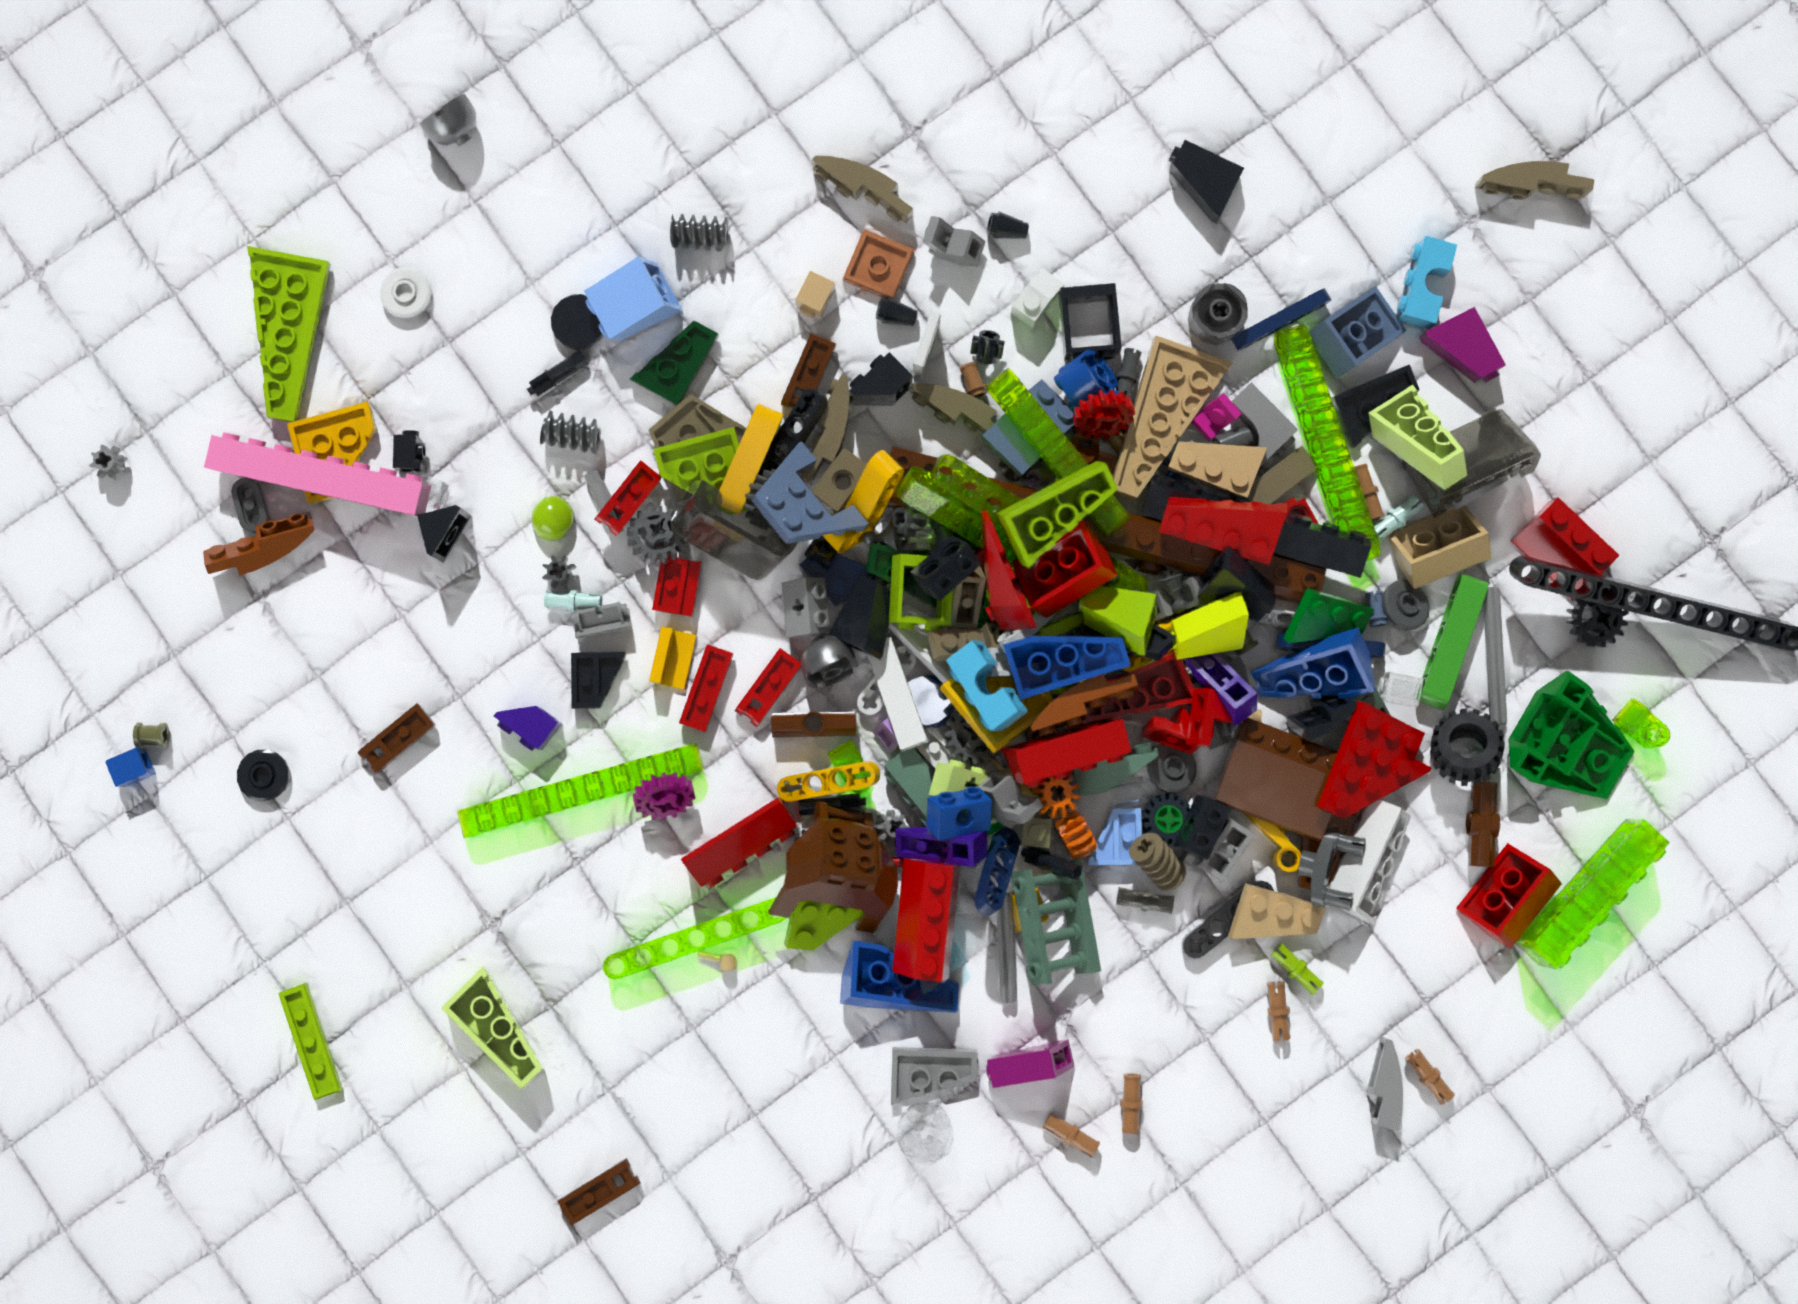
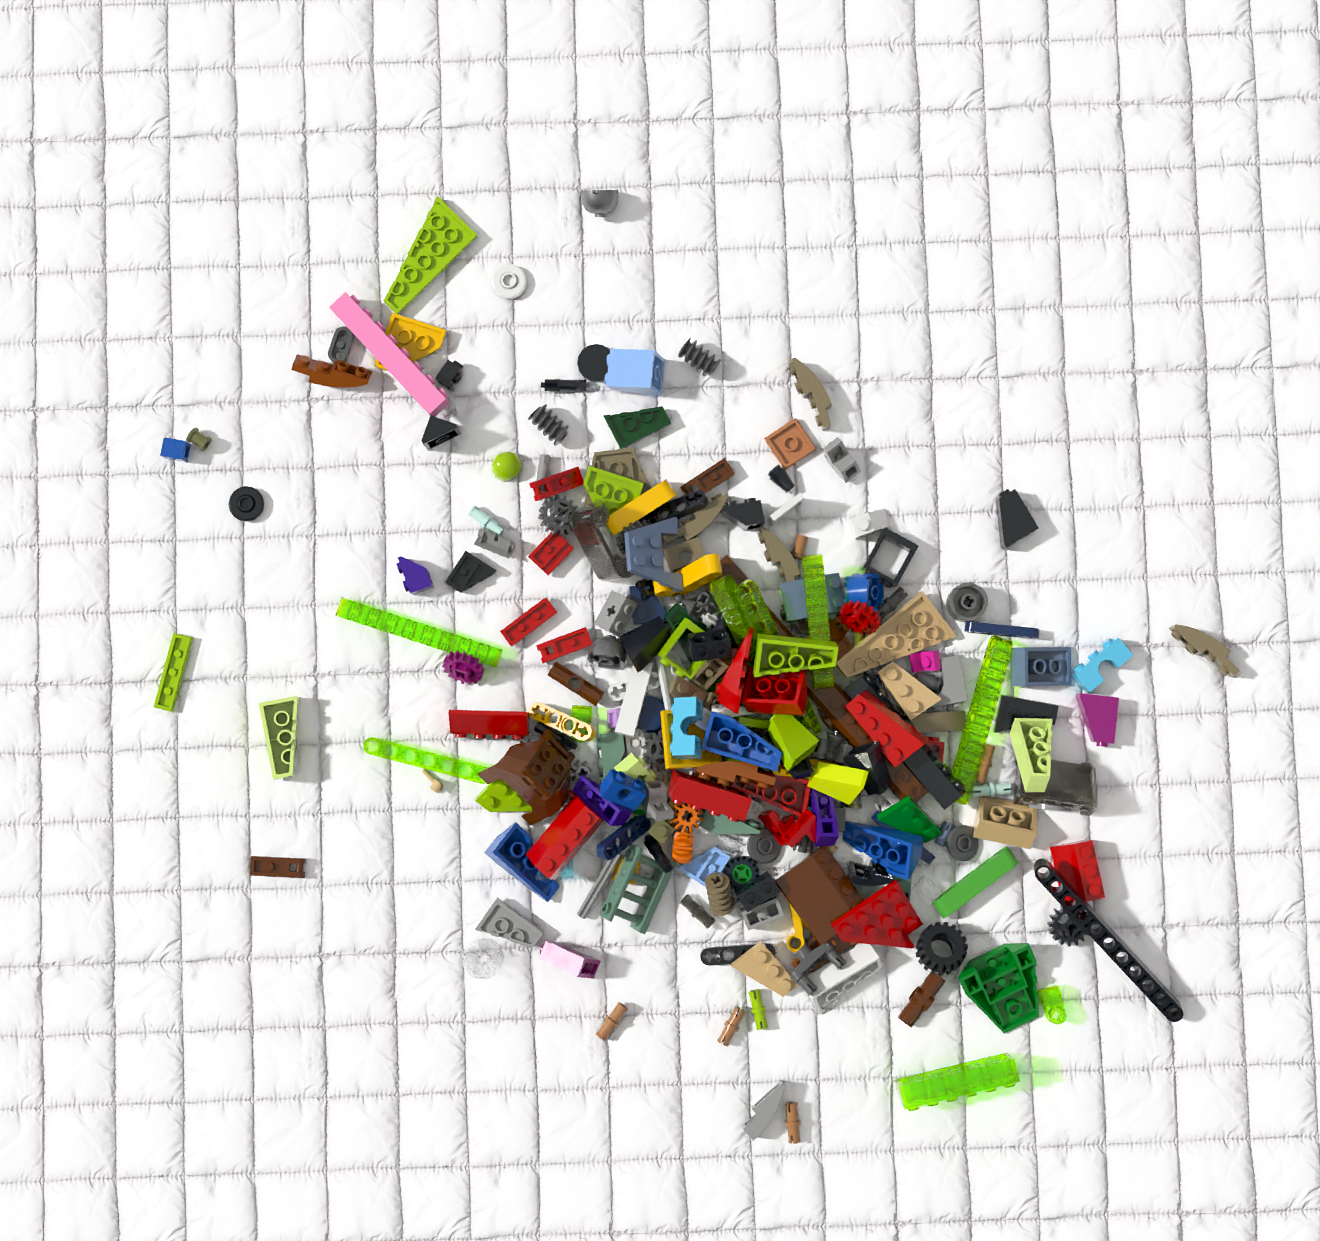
camera: 35 degrees right, 0 degrees up
(101, 458) = (275, 263): light grey gear -> none
(397, 738) = (335, 533): reddish brown plate -> none
(551, 569) = (486, 495): dark grey gear -> none
(672, 658) = (521, 592): yellow panel -> none
(815, 295) = (741, 437): tan brick -> none
(987, 347) = (820, 533): black gear -> none
(1006, 226) = (879, 471): black cone -> none
(1071, 1135) = (565, 1016): medium nougat pin -> none
(1495, 656) = (995, 907): light grey axle -> none
(1509, 895) = (909, 1050): red slope -> none

